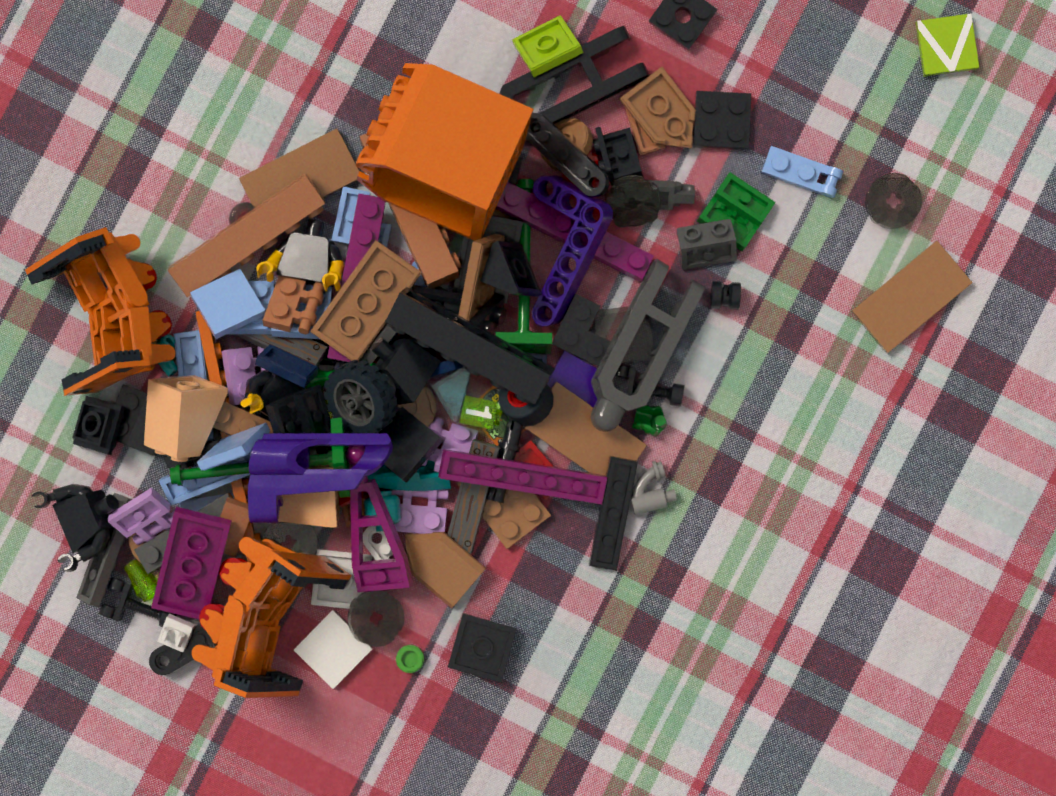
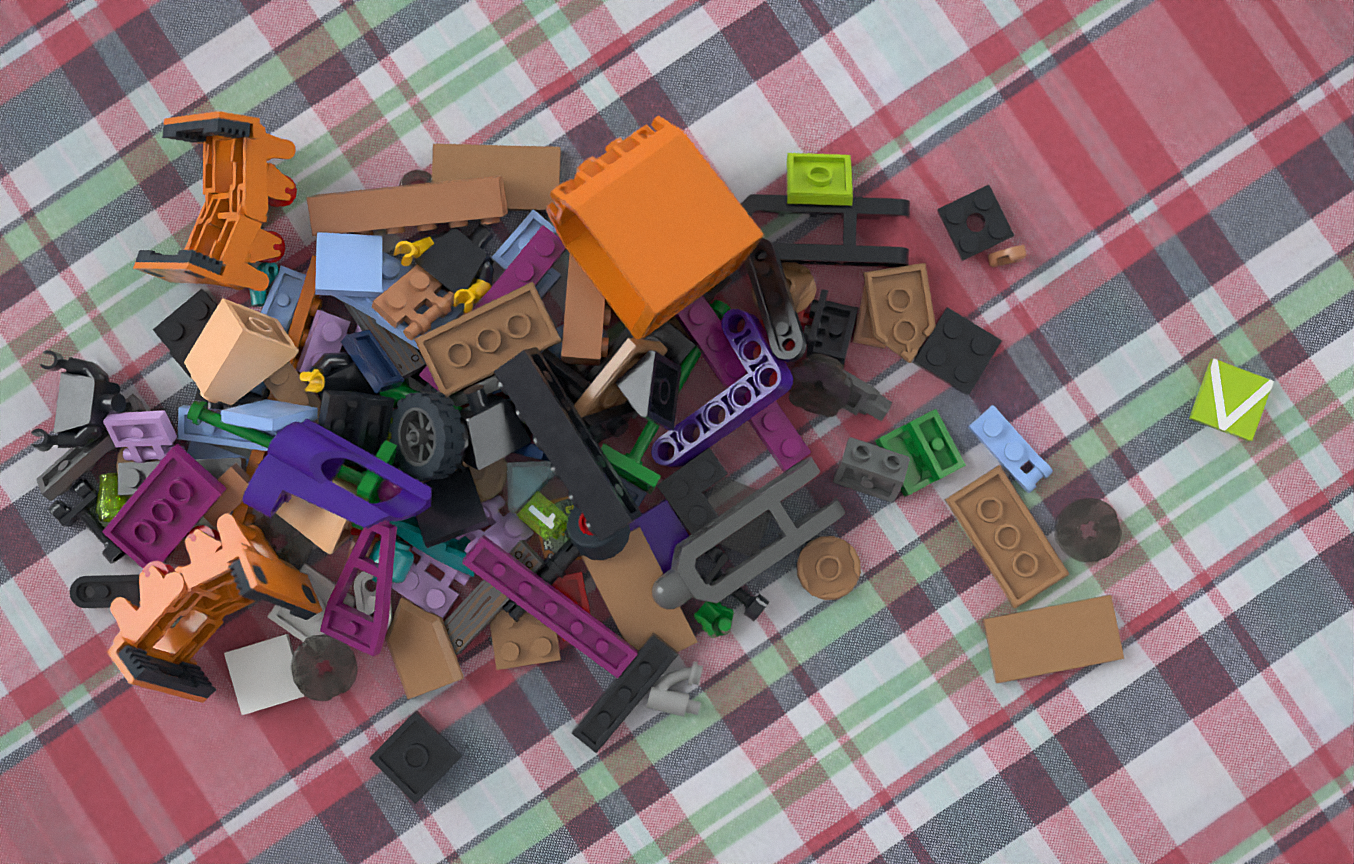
camera: 35 degrees right, 0 degrees up
(108, 422) = (152, 316): black piece -> none
(176, 633) = (113, 571): white tile -> none
(410, 658) = (337, 727): bright green tile -> none
(714, 336) = (828, 567): none -> medium nougat tile
(720, 27) = (1007, 256): none -> nougat tile
(725, 295) = (854, 533): black wheel -> none
(835, 239) = (1006, 536): none -> medium nougat tile

